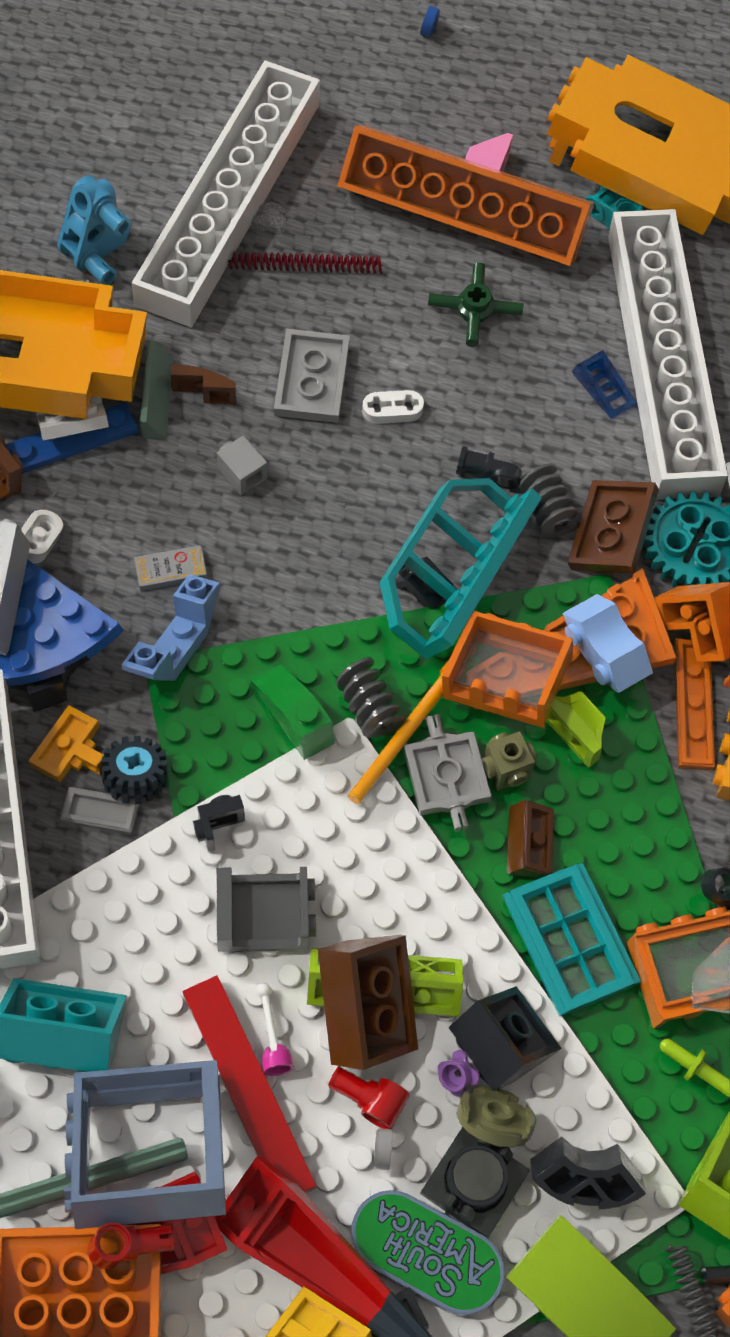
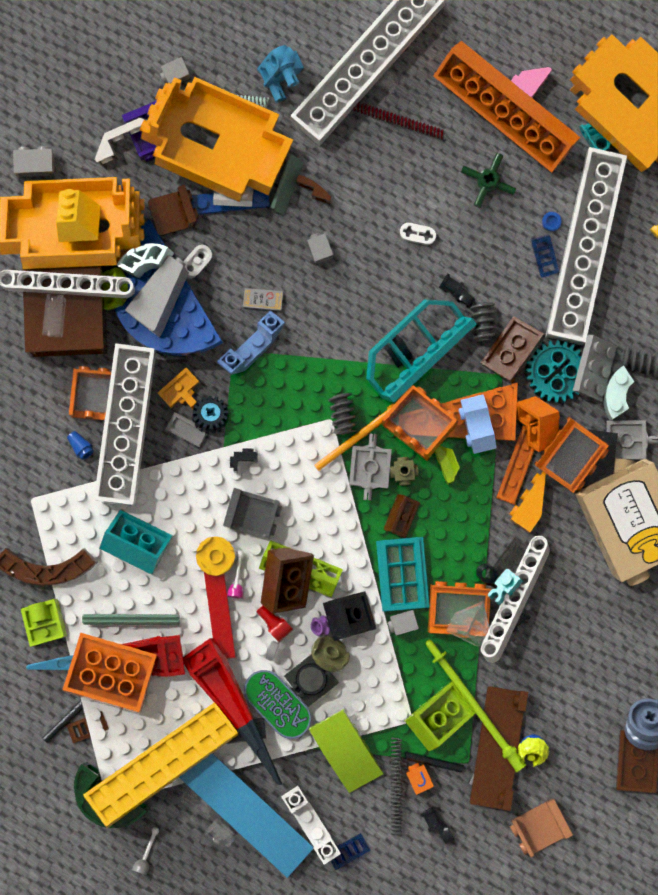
camera: 25 degrees right, 20 degrees up
(130, 1242) = (140, 660): red pin -> none
(141, 1086) = (166, 584): sand blue window -> none
(219, 1004) = (215, 556): none -> yellow tile
(295, 711) = (301, 407): green slope -> none
(312, 375) = (378, 200): light grey plate -> none
(587, 1177) = (363, 695): black brick -> none
(595, 338) = (551, 221): none -> blue tile
(606, 1022) = (403, 623): none -> light grey brick

